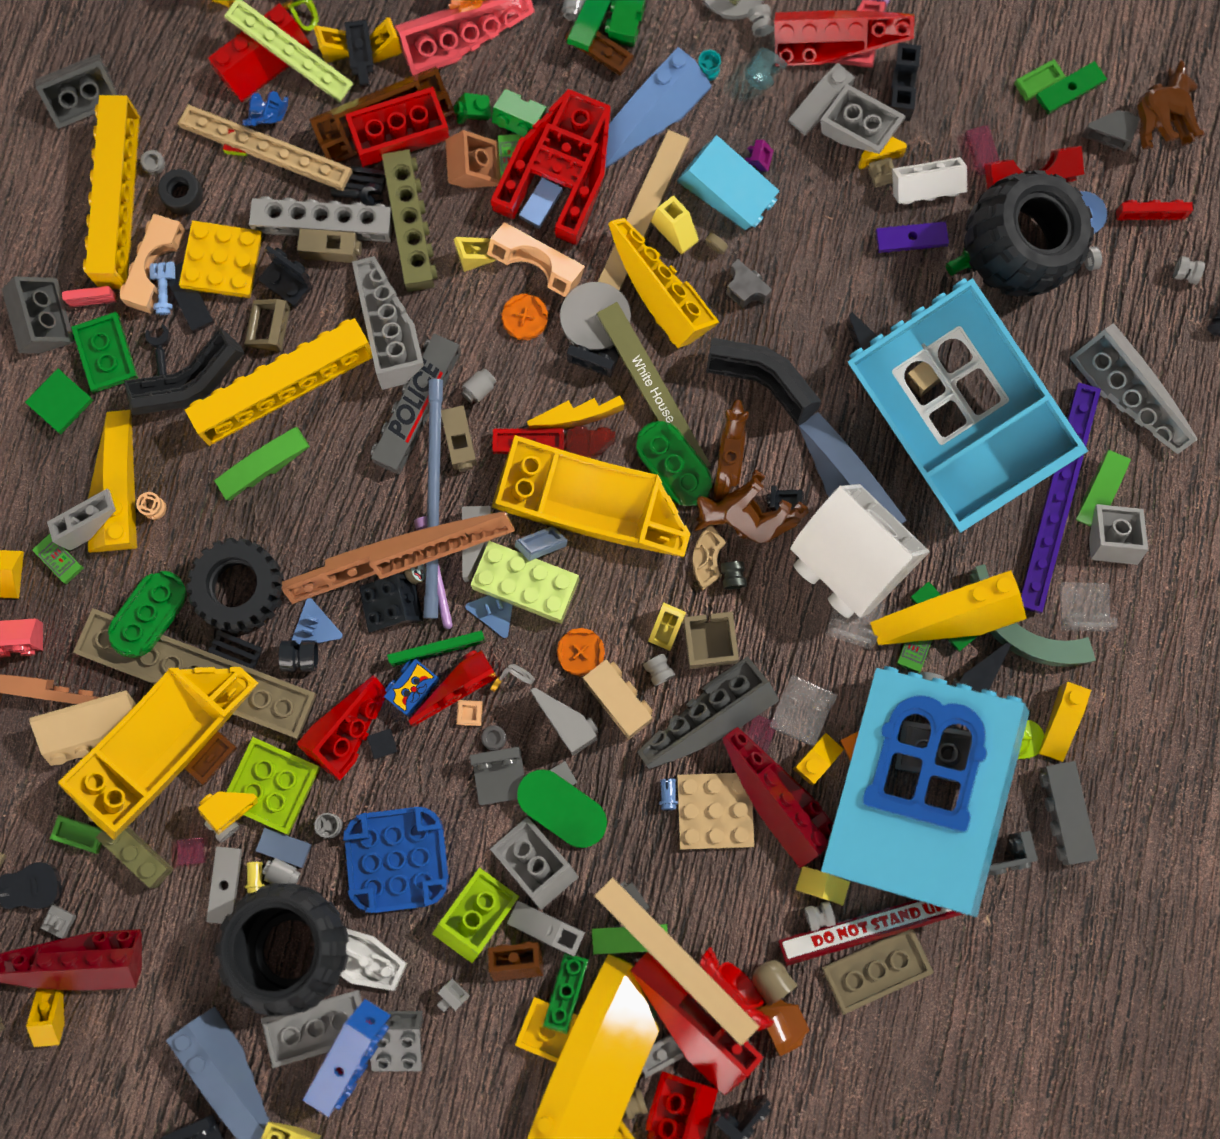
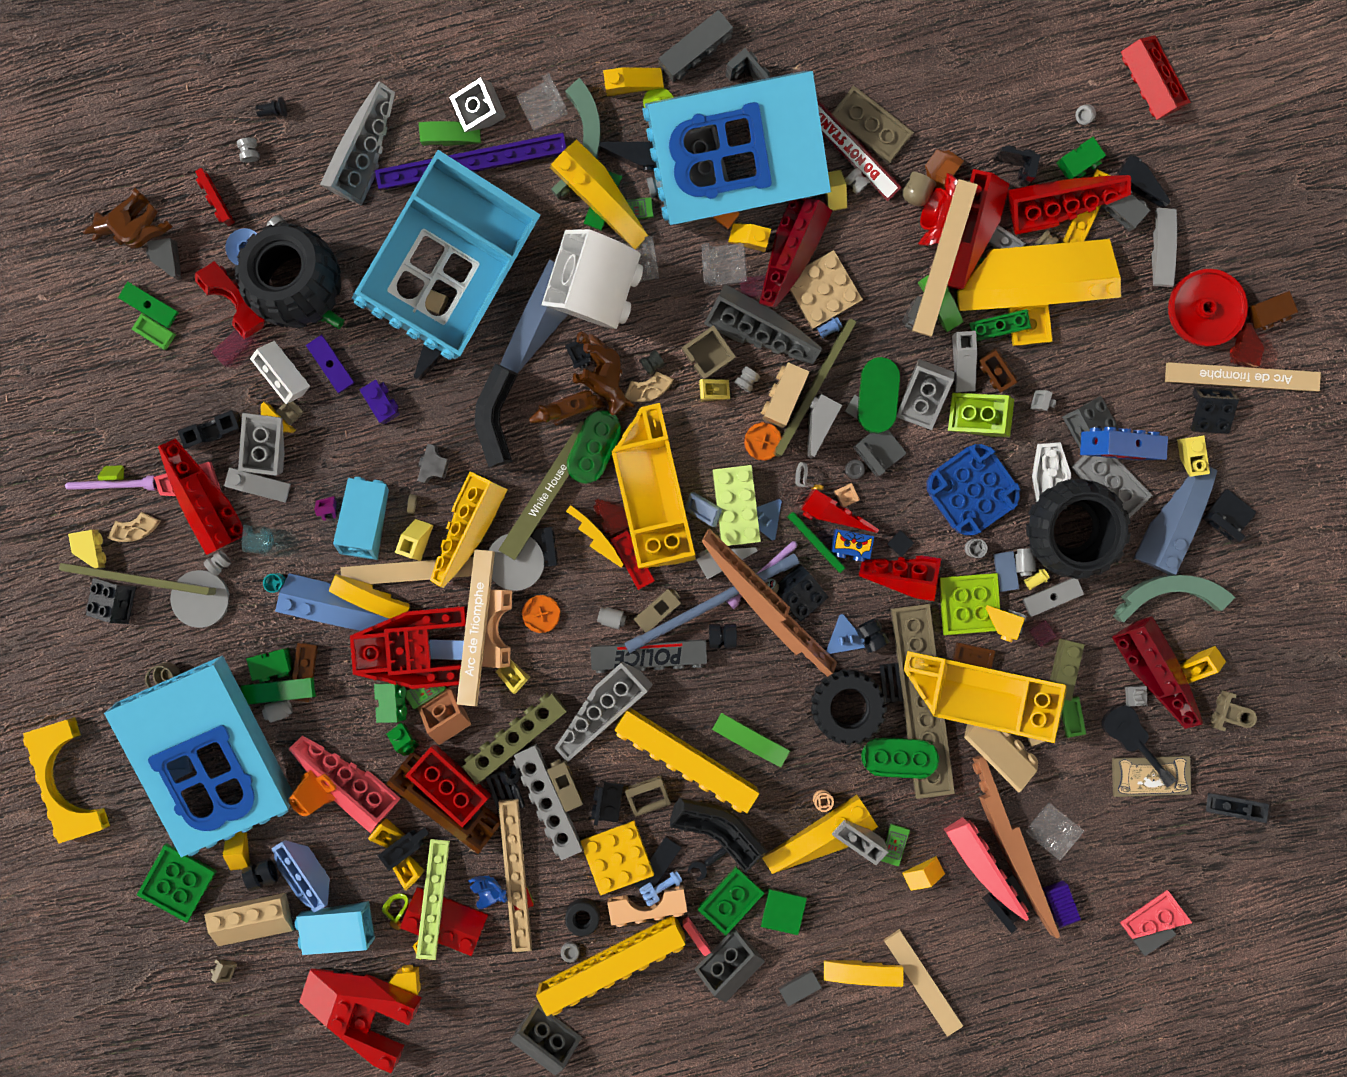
camera: 115 degrees left, 10 degrees up
(162, 1026) = (1204, 589): none -> sand green arch
(391, 492) = (722, 636): none -> black wheel
(546, 235) = (475, 628): none -> tan tile
(609, 739) = (812, 391): none -> olive tile
(644, 144) = (366, 597): none -> yellow slope
(844, 265) = (380, 402): none -> dark purple brick

